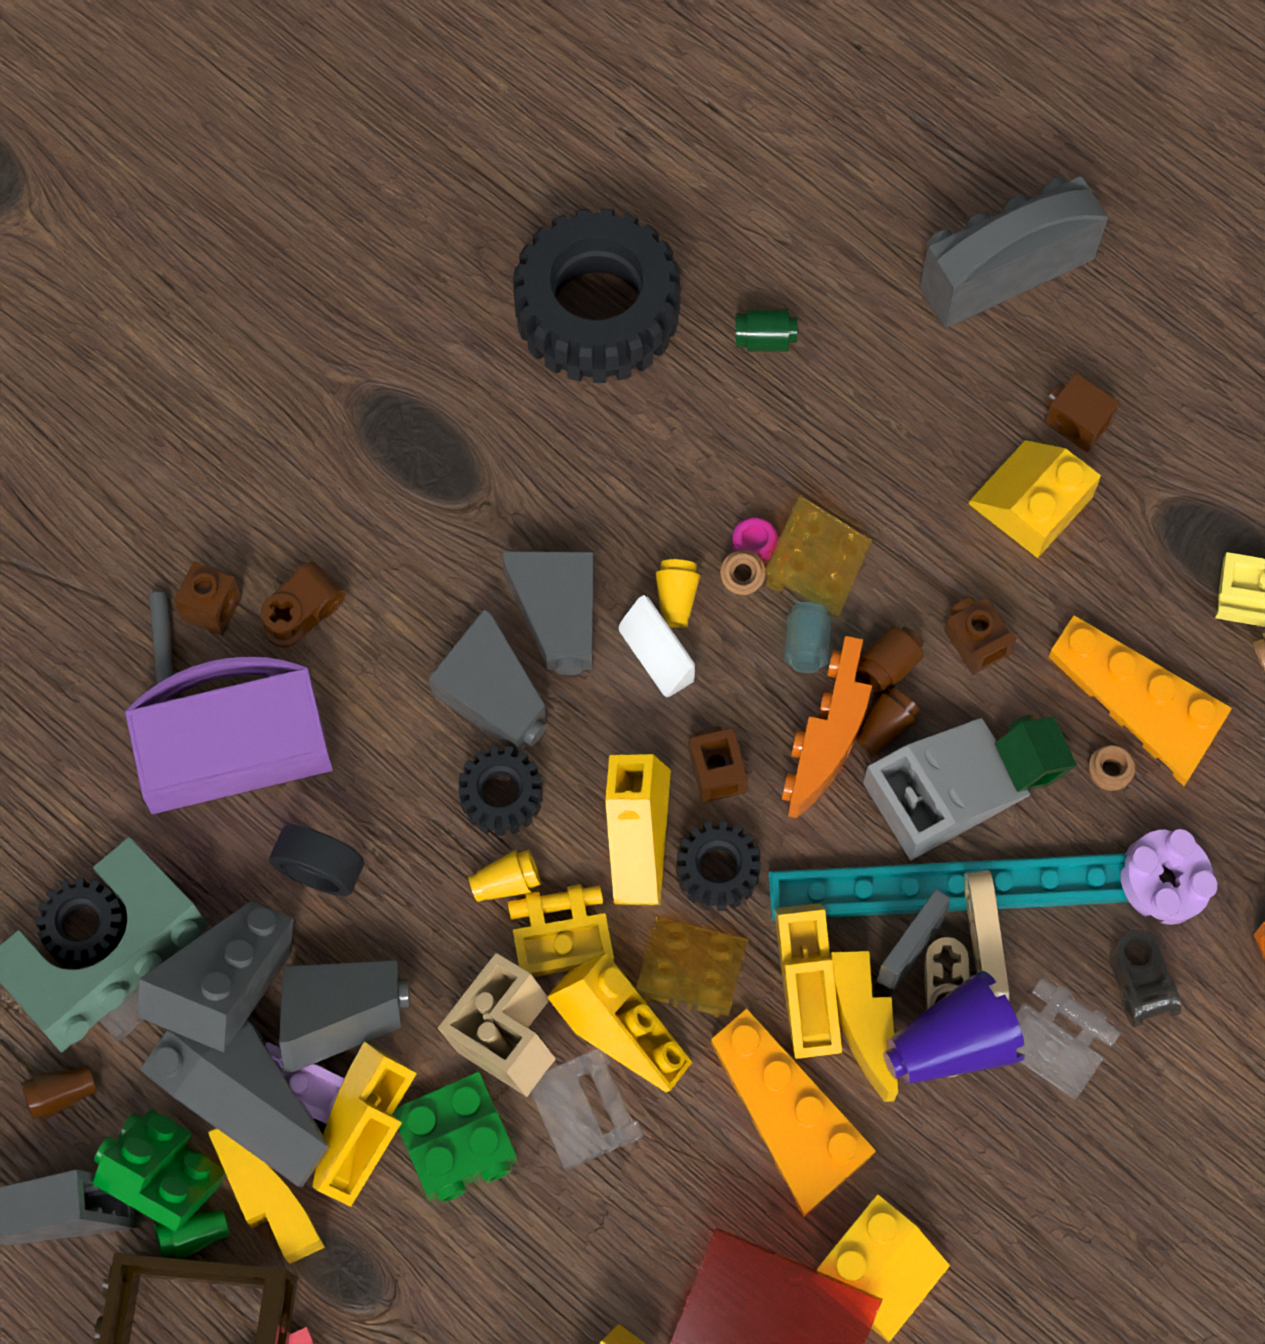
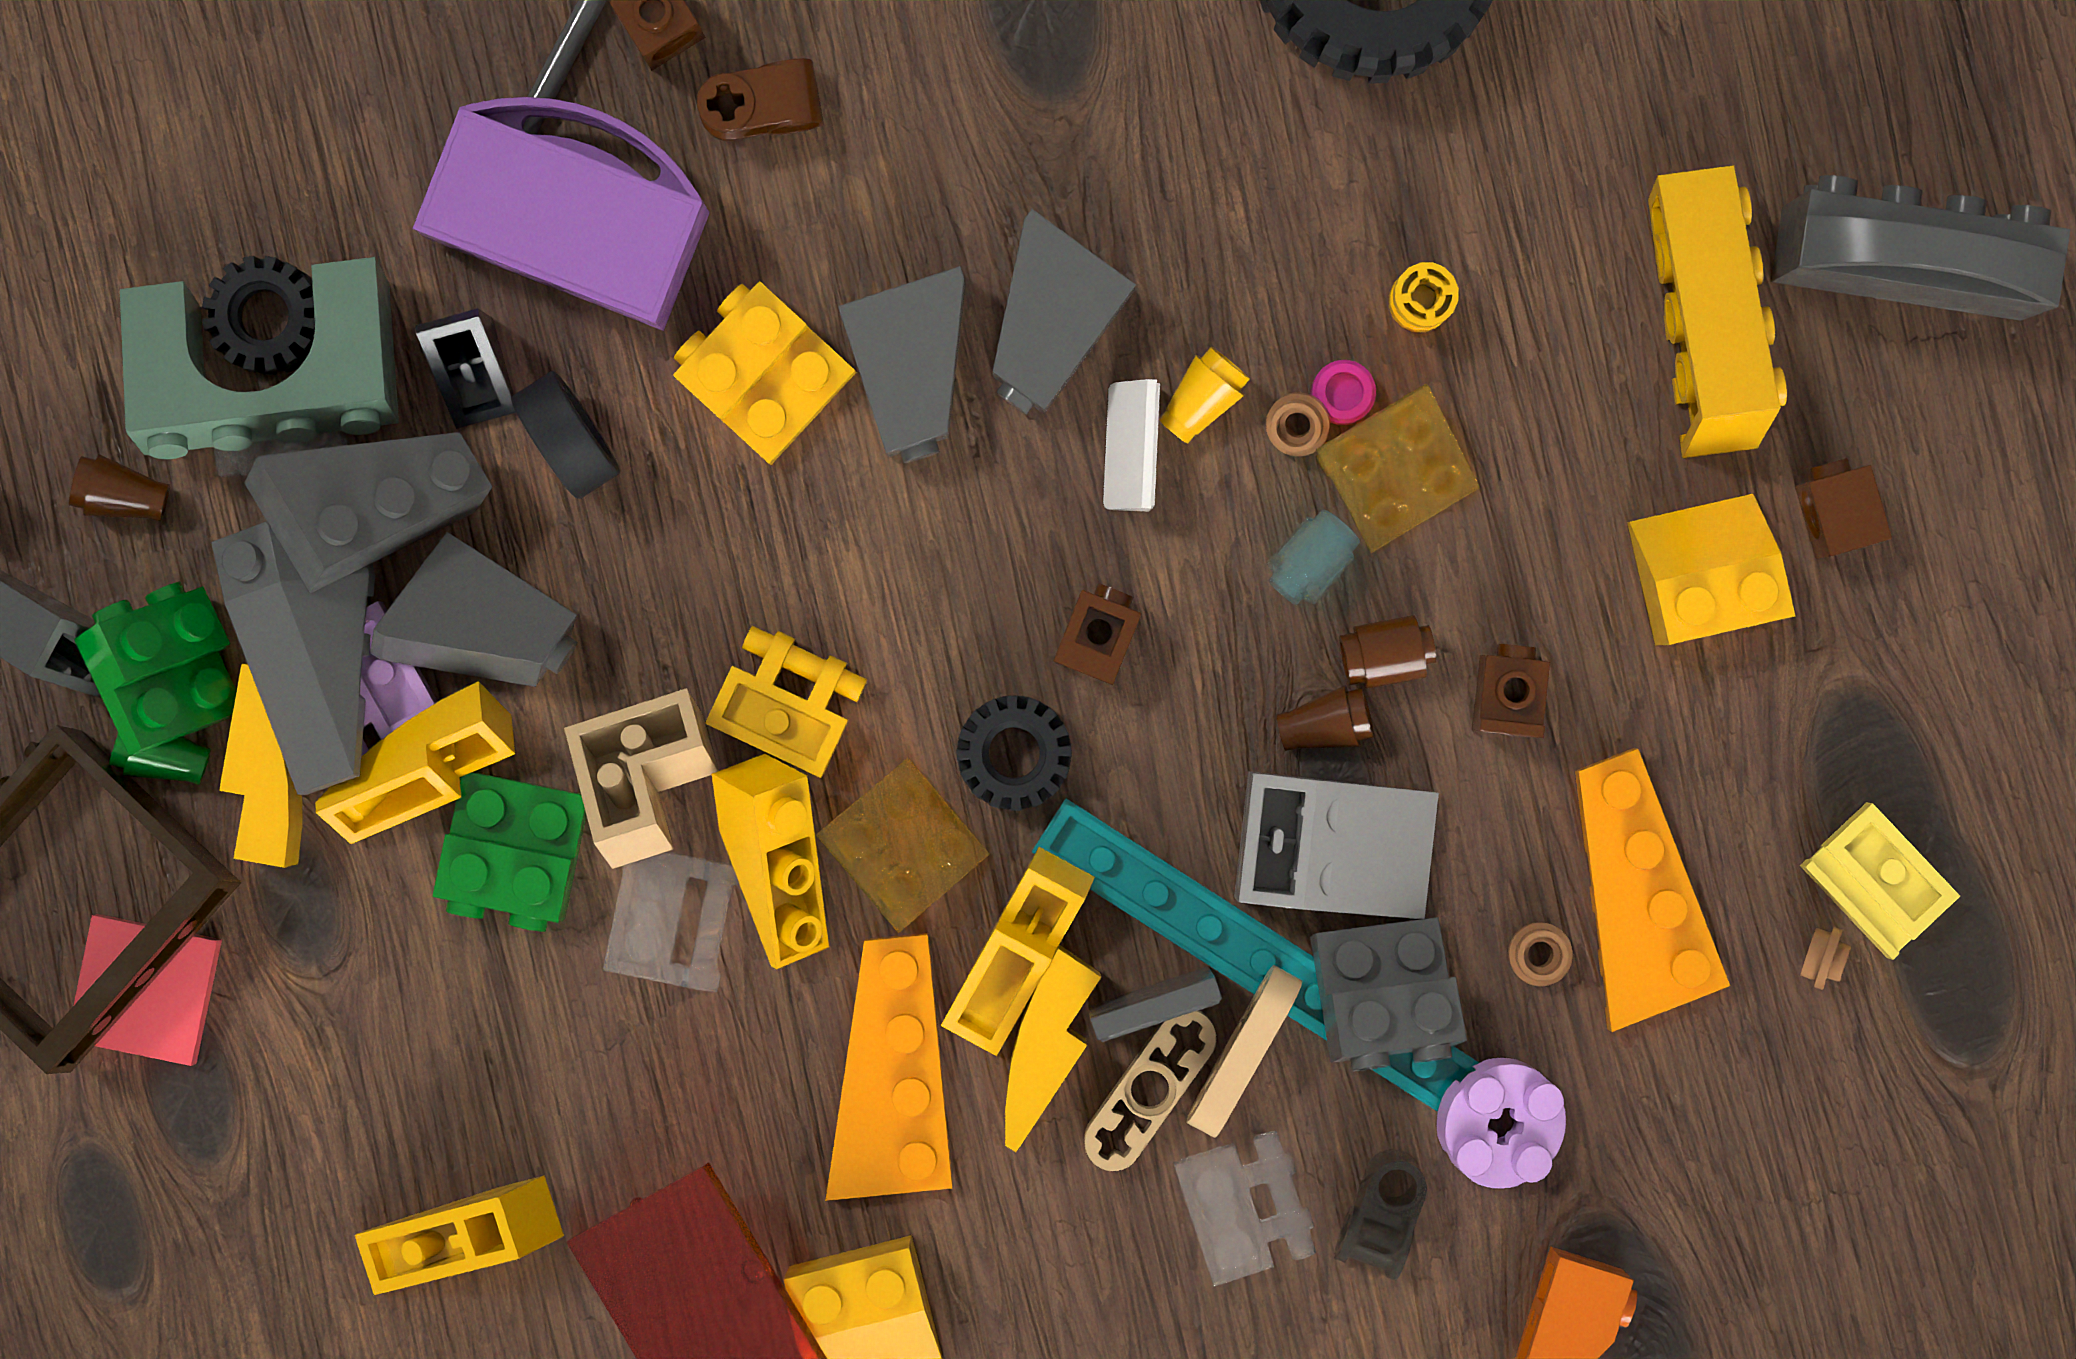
camera: 40 degrees right, 20 degrees up
(227, 865) = (468, 366): none -> black slope
(407, 753) = (762, 370): none -> yellow plate
(495, 764) = (805, 463): black tyre -> none
(506, 877) = (770, 597): yellow cone -> none
(637, 826) = (952, 647): yellow slope -> none
(760, 467) = (1413, 301): none -> yellow wheel
(765, 330) = (1551, 138): dark green brick -> none
(828, 741) = (1235, 704): orange slope -> none
(928, 357) = (1715, 310): none -> yellow wedge
(957, 1035) = (1119, 1145): dark purple cone -> none
(1035, 752) = (1463, 881): dark green brick -> none
(1043, 847) = (1387, 993): none -> dark grey plate

